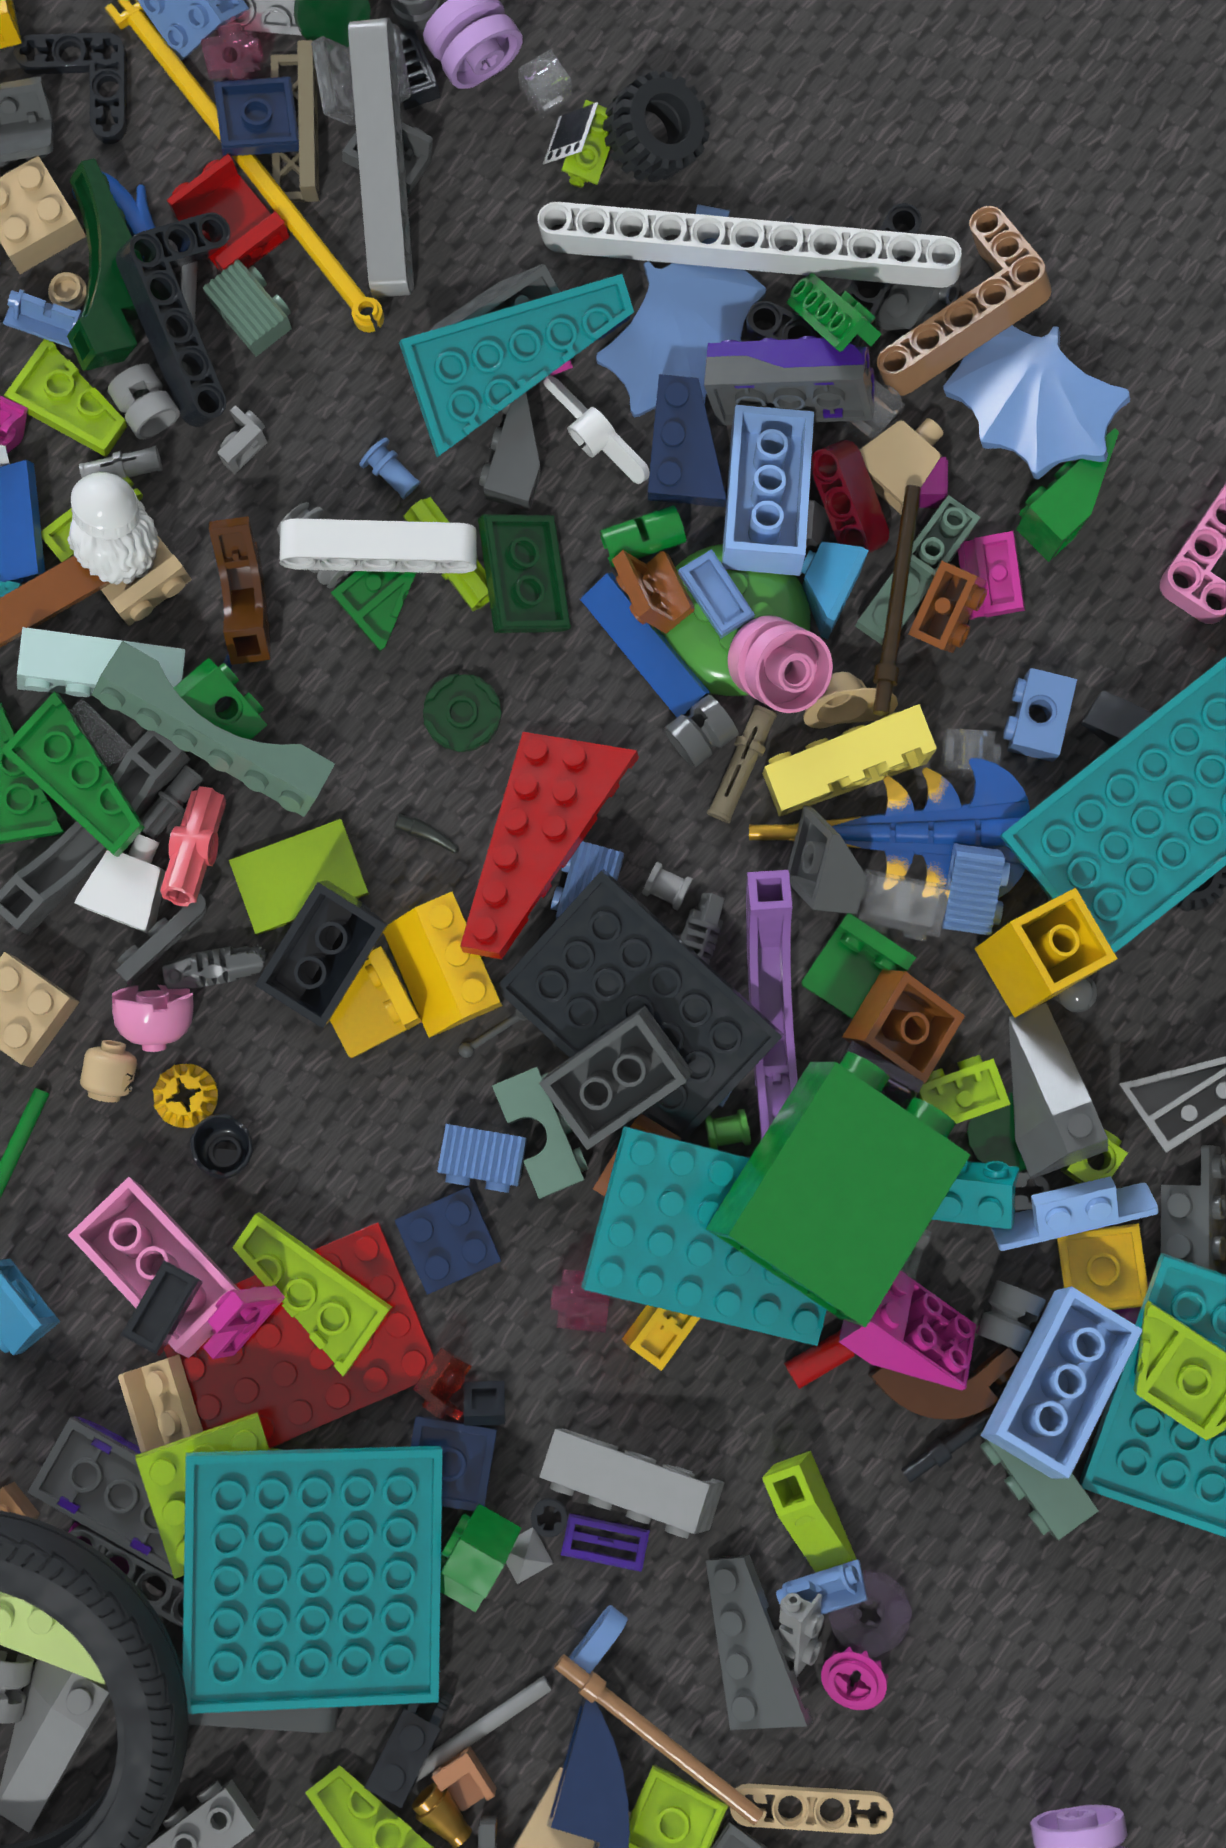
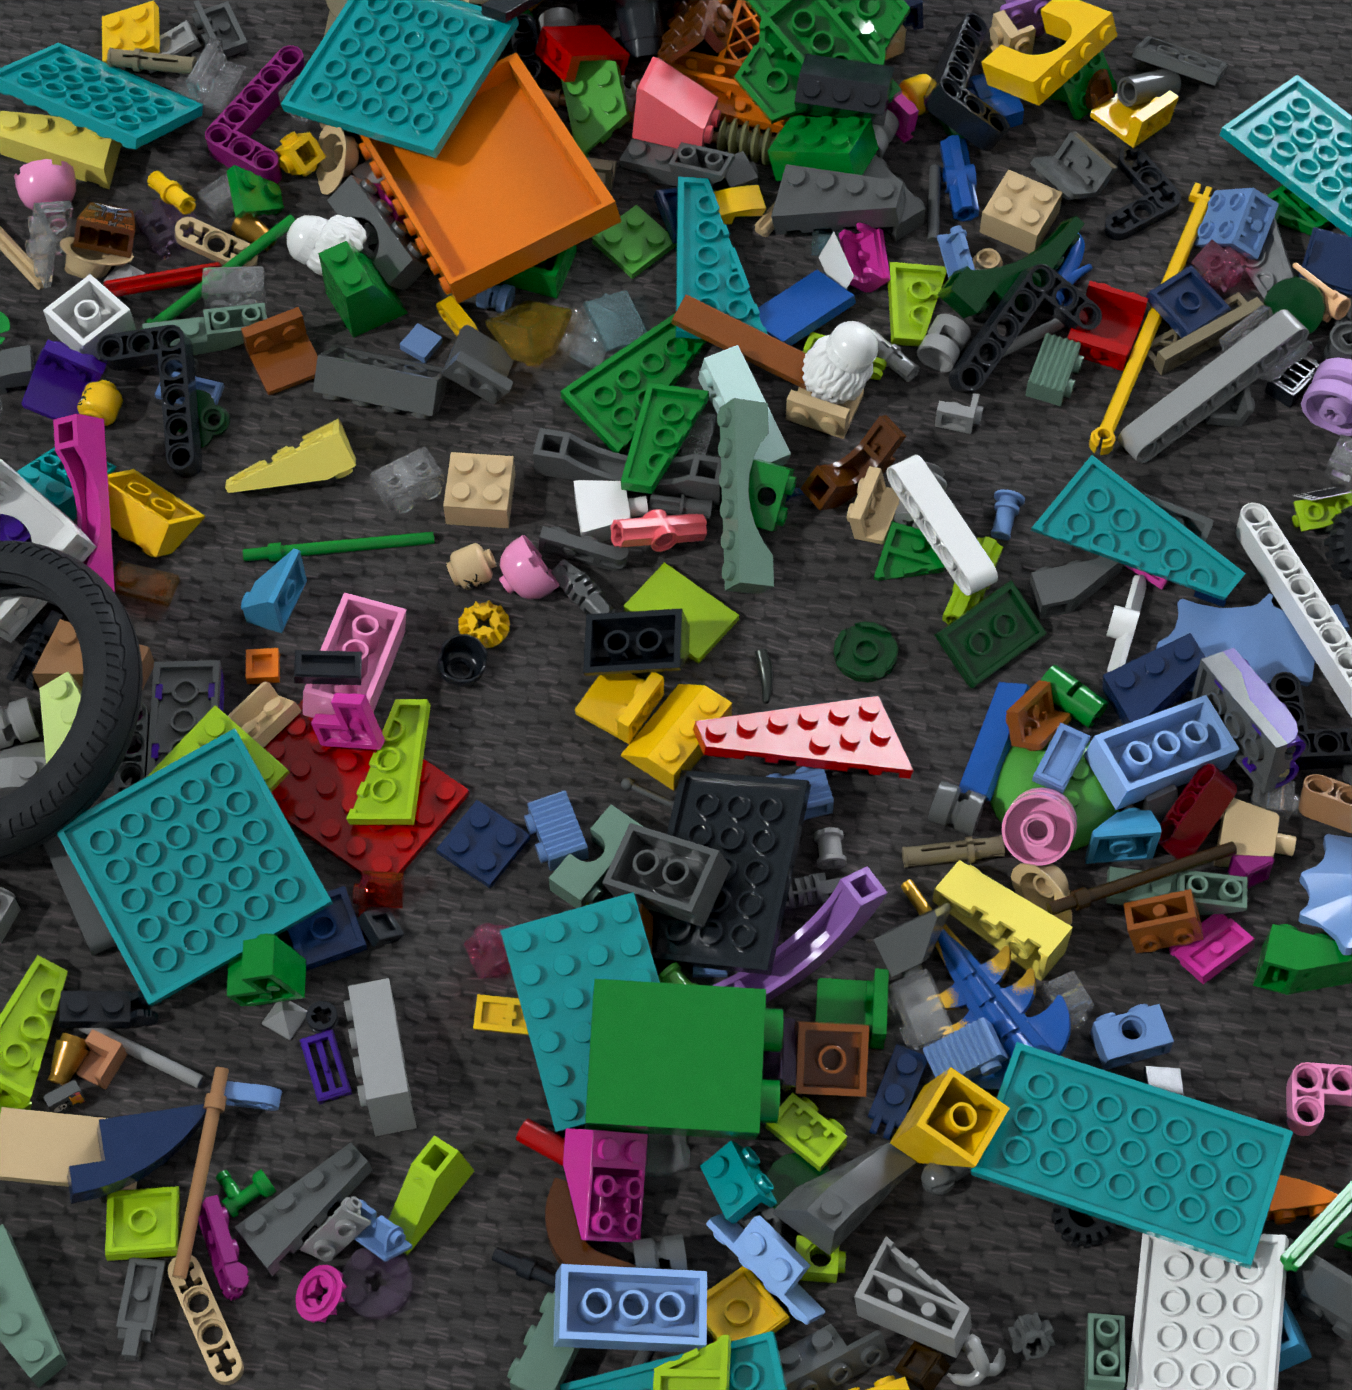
camera: 60 degrees right, 20 degrees down
(92, 1365) = (262, 665): none -> orange plate
(305, 601) = (873, 508): none -> tan bracket
(701, 1709) = (238, 1199): none -> green piece
(749, 1755) = (222, 1249): none -> magenta hinge
(832, 315) = (1320, 711): green bracket -> none
(961, 977) = (897, 1089): none -> dark blue hinge

